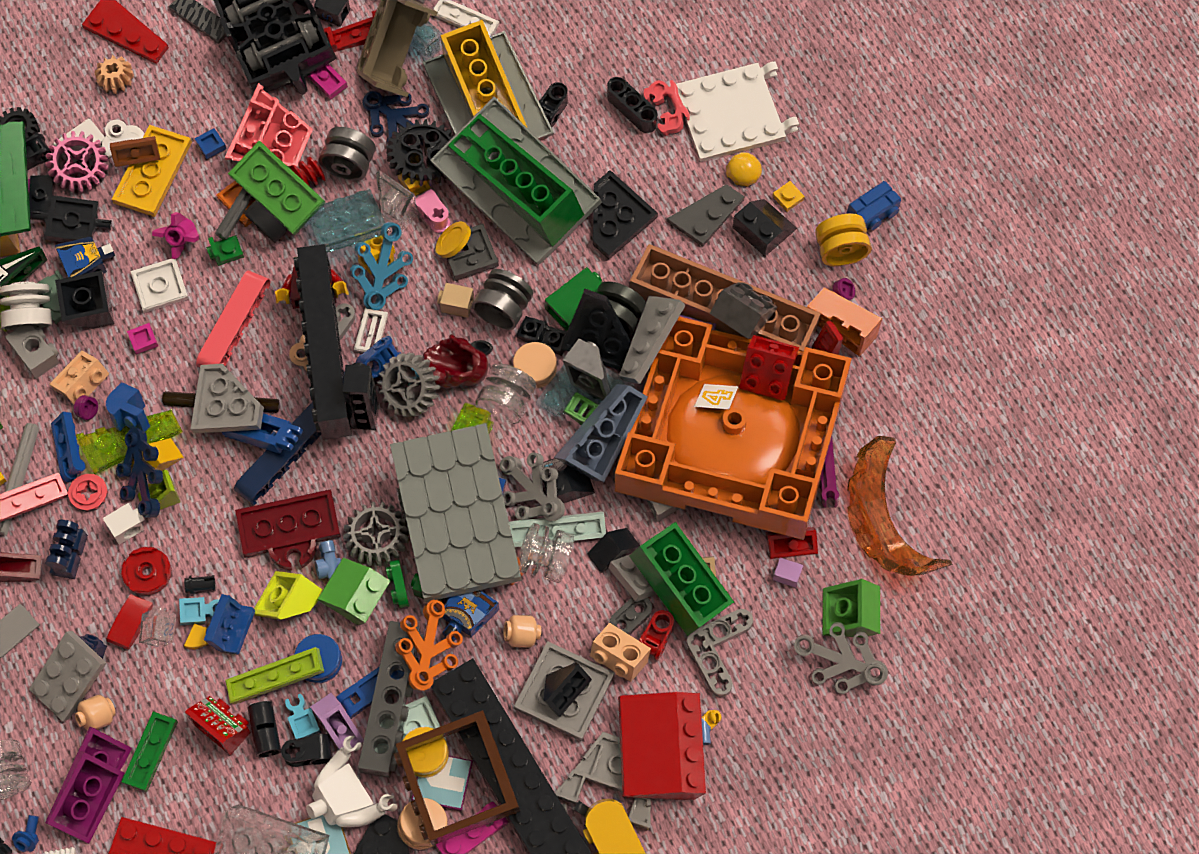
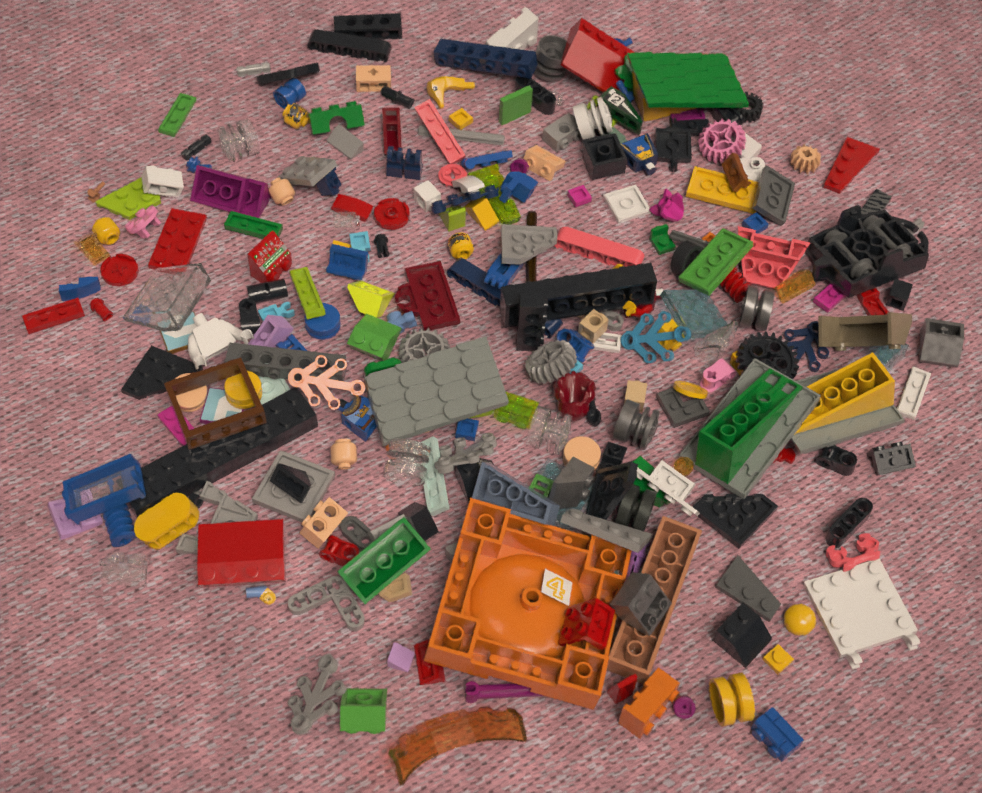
camera: 85 degrees right, 10 degrees down
(116, 466) = (468, 184): none -> white slope
(171, 115) = (773, 195): none -> dark grey plate
(213, 484) = (460, 245): none -> yellow head
(308, 110) = (795, 285): none -> clear yellow slope
(361, 342) = (587, 327): none -> tan brick
(551, 52) = (892, 459): none -> bracket
(553, 259) = (684, 465): none -> clear yellow plate
(589, 268) = (672, 483): none -> white bracket

